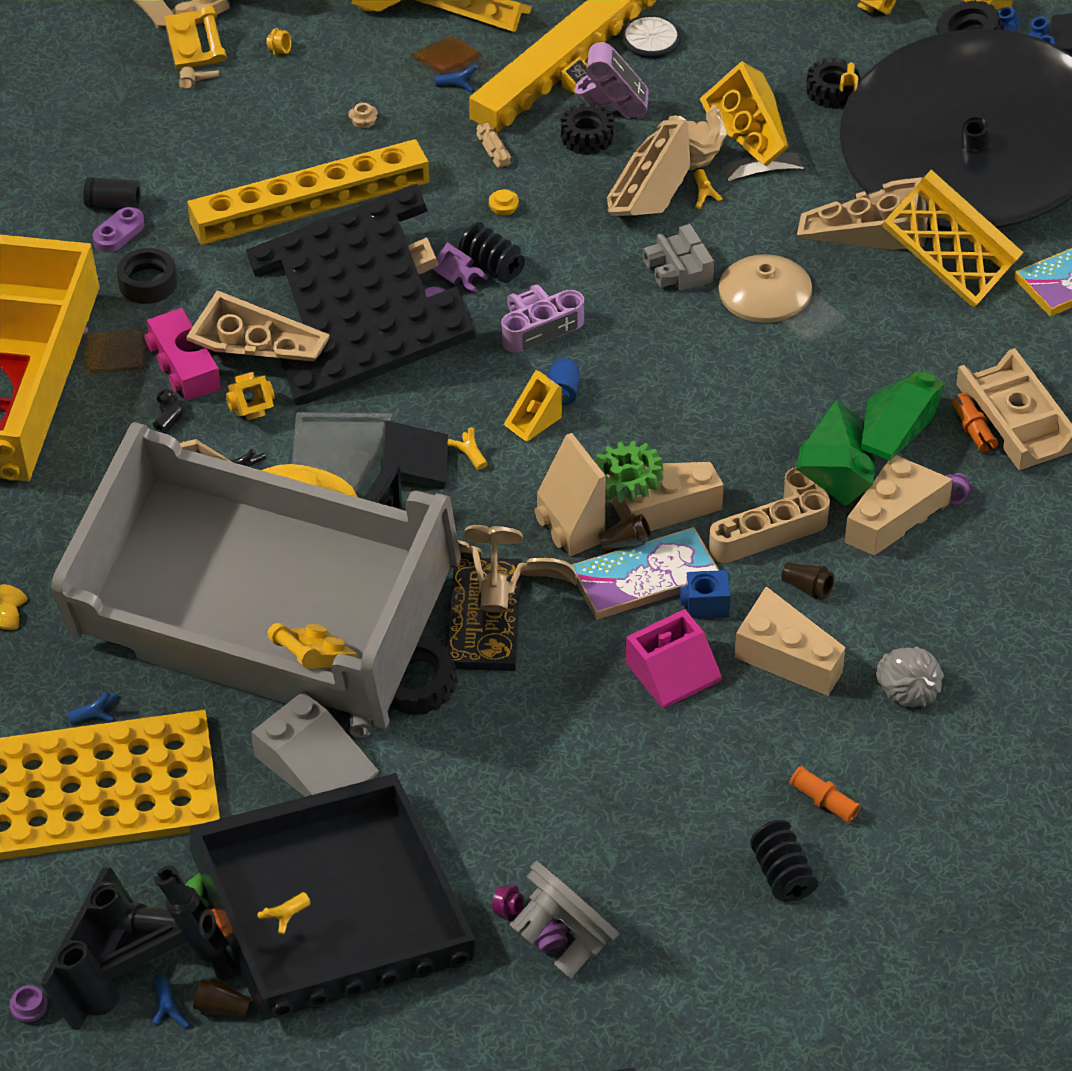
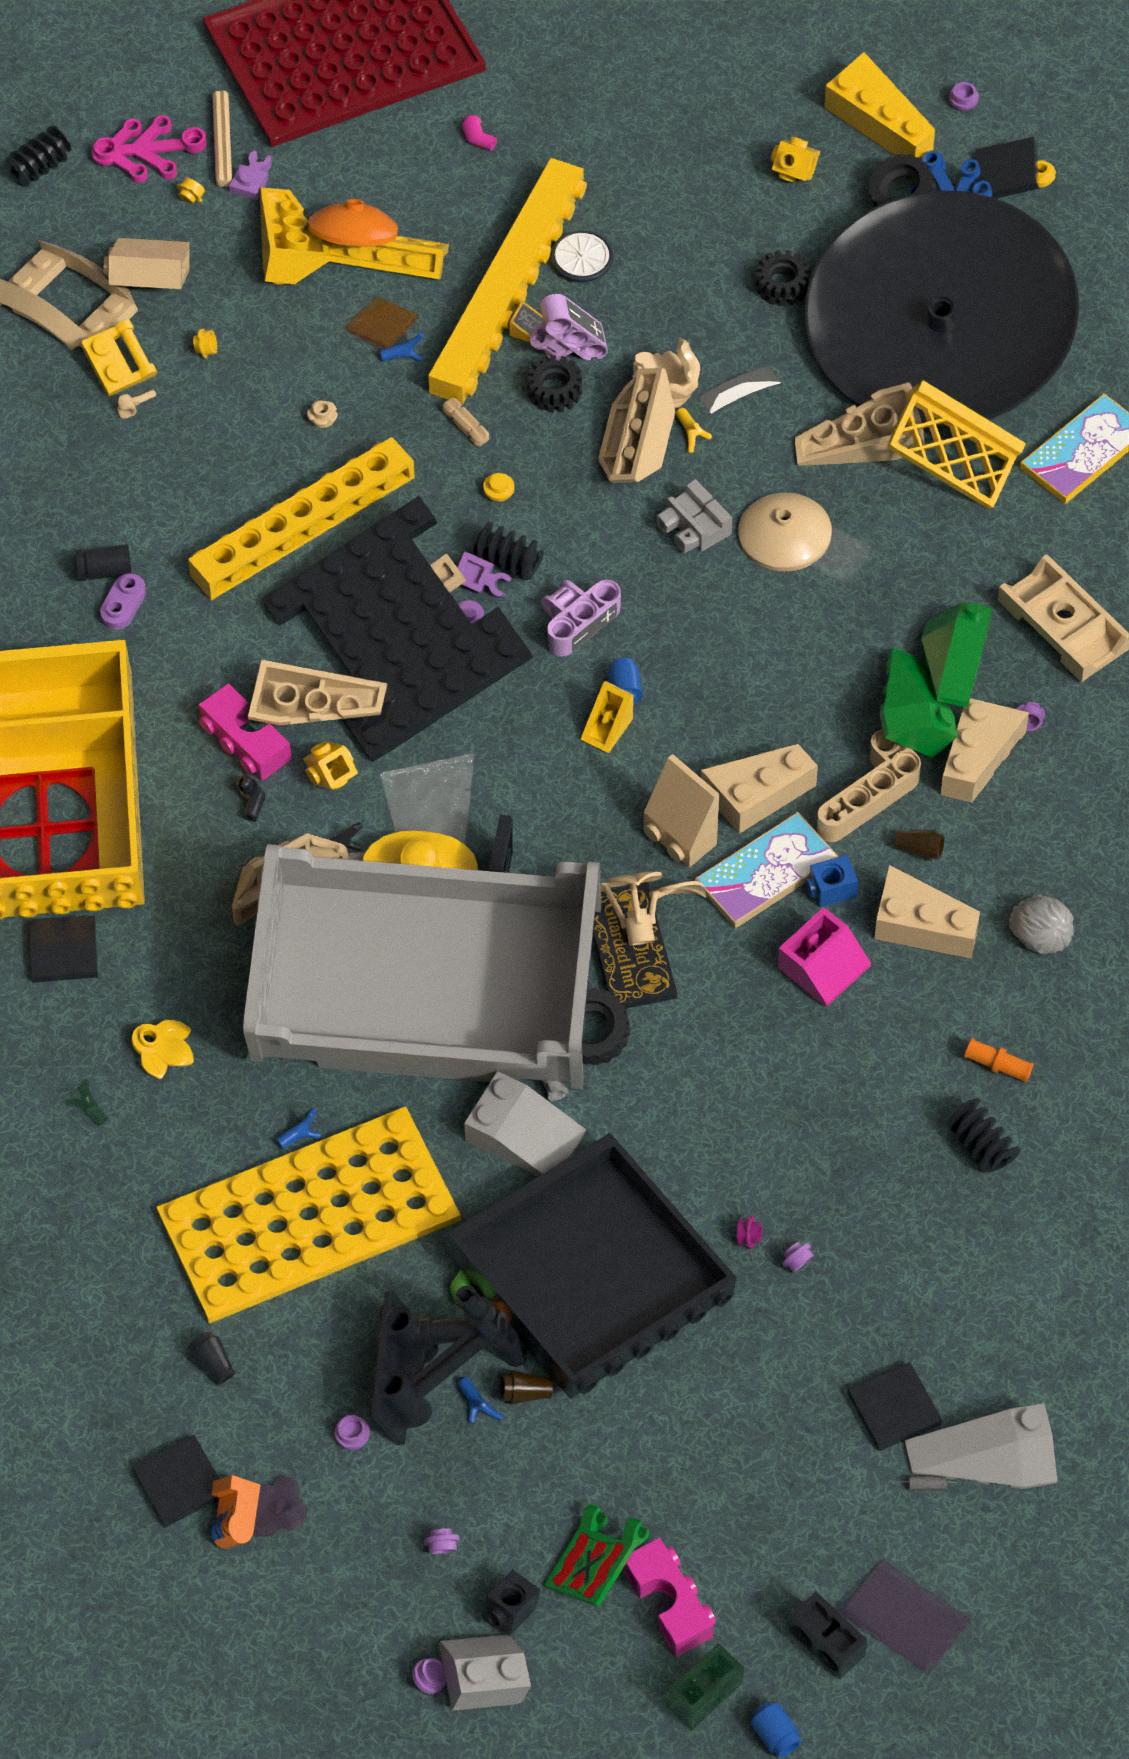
camera: 15 degrees left, 10 degrees up
(115, 351) = (172, 740): clear orange piece -> none
(146, 291) = (178, 669): black tyre -> none
(286, 911) = (563, 1294): yellow bar -> none
(311, 645) = (500, 1028): yellow plate -> none
(418, 451) = (510, 792): black tile -> none
(470, 448) = (557, 772): yellow bar -> none
(557, 901) = (795, 1230): light grey piece -> none
(627, 533) = (740, 835): dark brown cone -> none
(628, 472) = (729, 776): bright green gear -> none
(749, 112) = (713, 334): yellow wedge -> none
(849, 78) = (801, 274): yellow hand -> none
(974, 422) = (1027, 640): orange pin -> none

